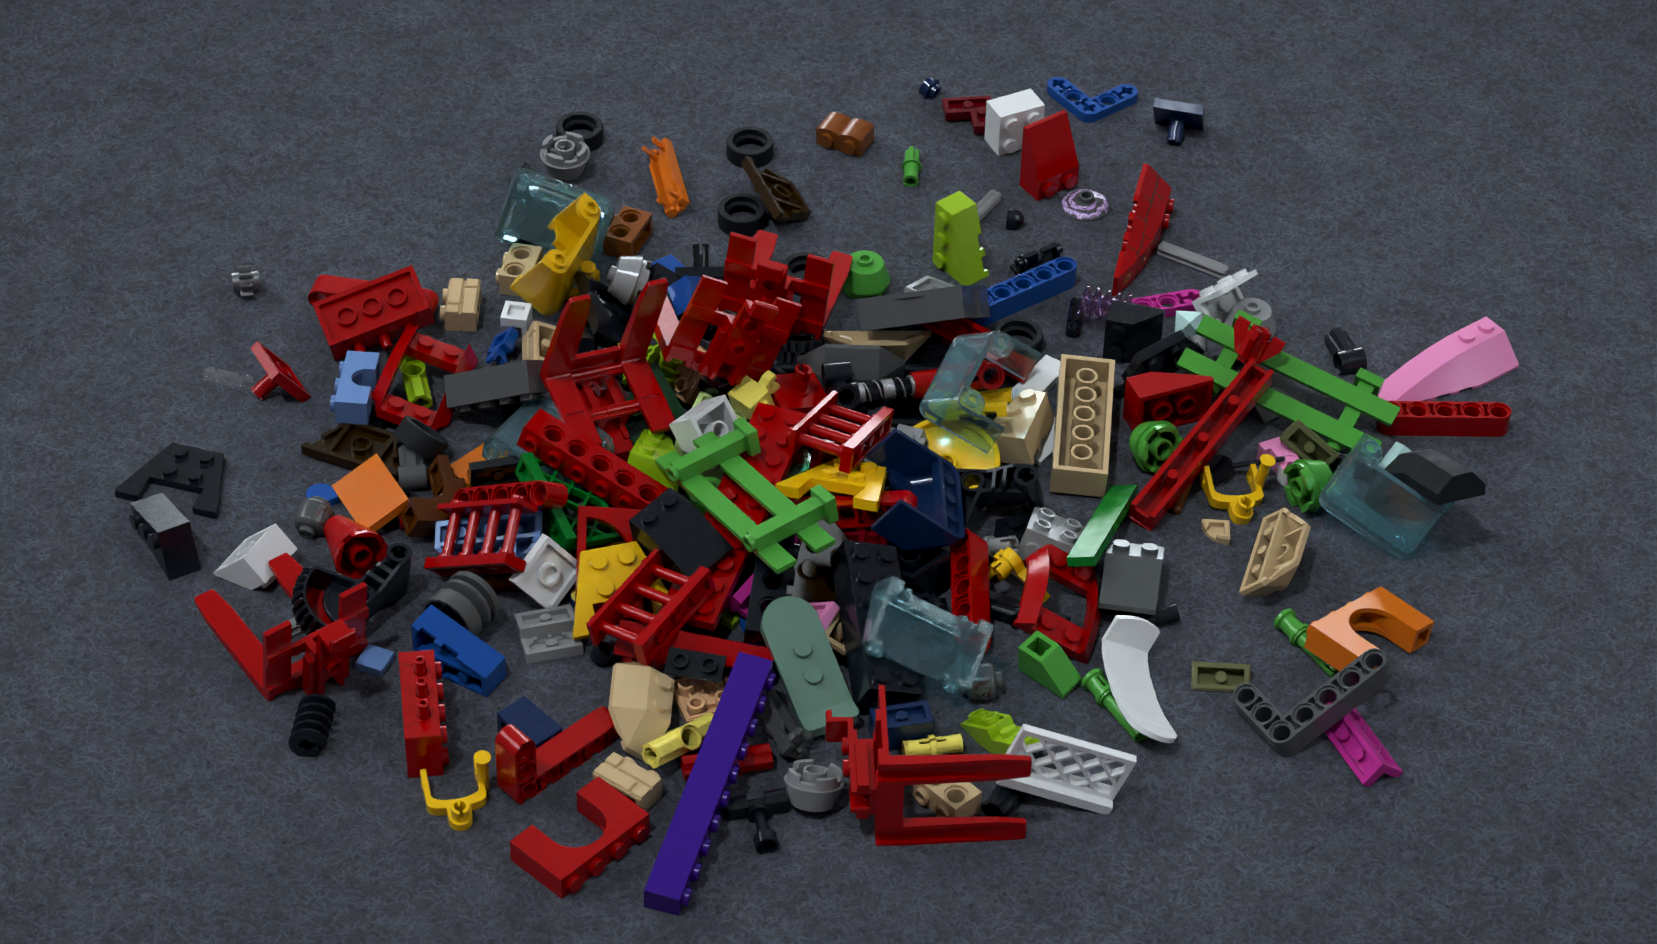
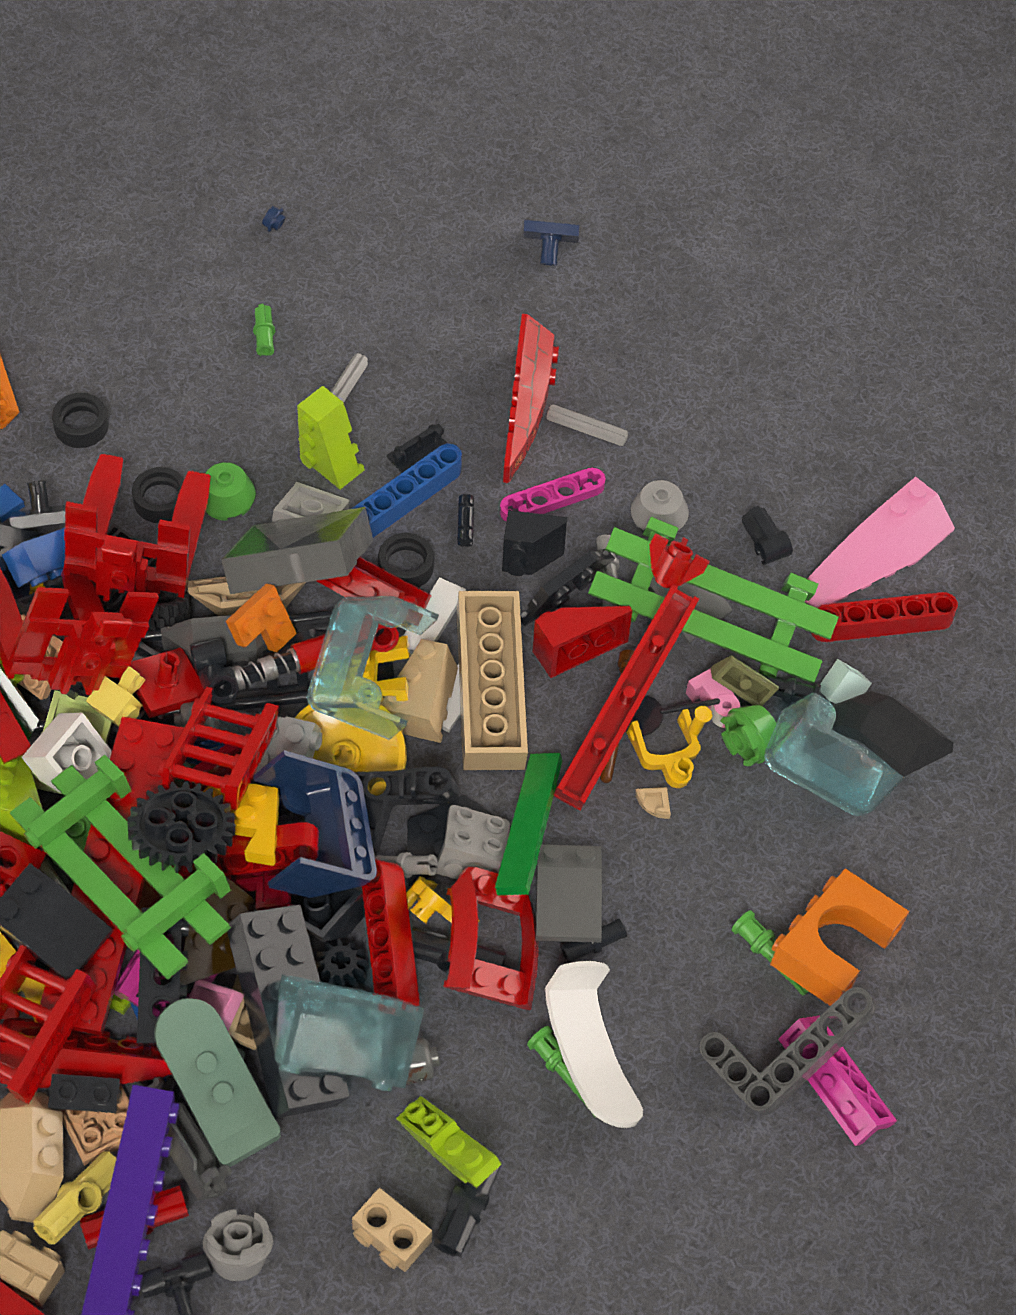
camera: 10 degrees left, 15 degrees up
(750, 135) = (85, 339): black tyre -> none
(777, 193) = (117, 388): dark brown wing -> none
(798, 470) = (180, 826): none -> black gear
(845, 134) = (185, 294): dark orange brick -> none
(880, 779) = (326, 1268): red piece -> none
(887, 346) = (264, 615): none -> orange plate
(905, 722) = (330, 1139): dark blue panel -> none
(933, 745) = (368, 1160): light yellow pin -> none
(967, 108) = (326, 242): dark red plate -> none
(1007, 118) = (372, 262): white brick -> none
(1014, 219) = (385, 391): black hinge -> none
(1048, 157) = (415, 311): red slope -> none
(1048, 664) = (488, 1028): bright green slope -> none
(1060, 783) = (521, 1197): white fence -> none
(1085, 205) = (461, 367): dish -> none
(1088, 108) = (453, 222): blue beam -> none
(1098, 303) = (497, 507): clear purple piece -> none
(1153, 444) = (575, 698): bright green cone -> none
(1187, 322) = (591, 516): light aqua slope -> none
(1218, 676) = (680, 1012): olive slope -> none
(1219, 299) = (626, 481): white bracket -> none
(1275, 553) = (725, 837): tan wedge -> none

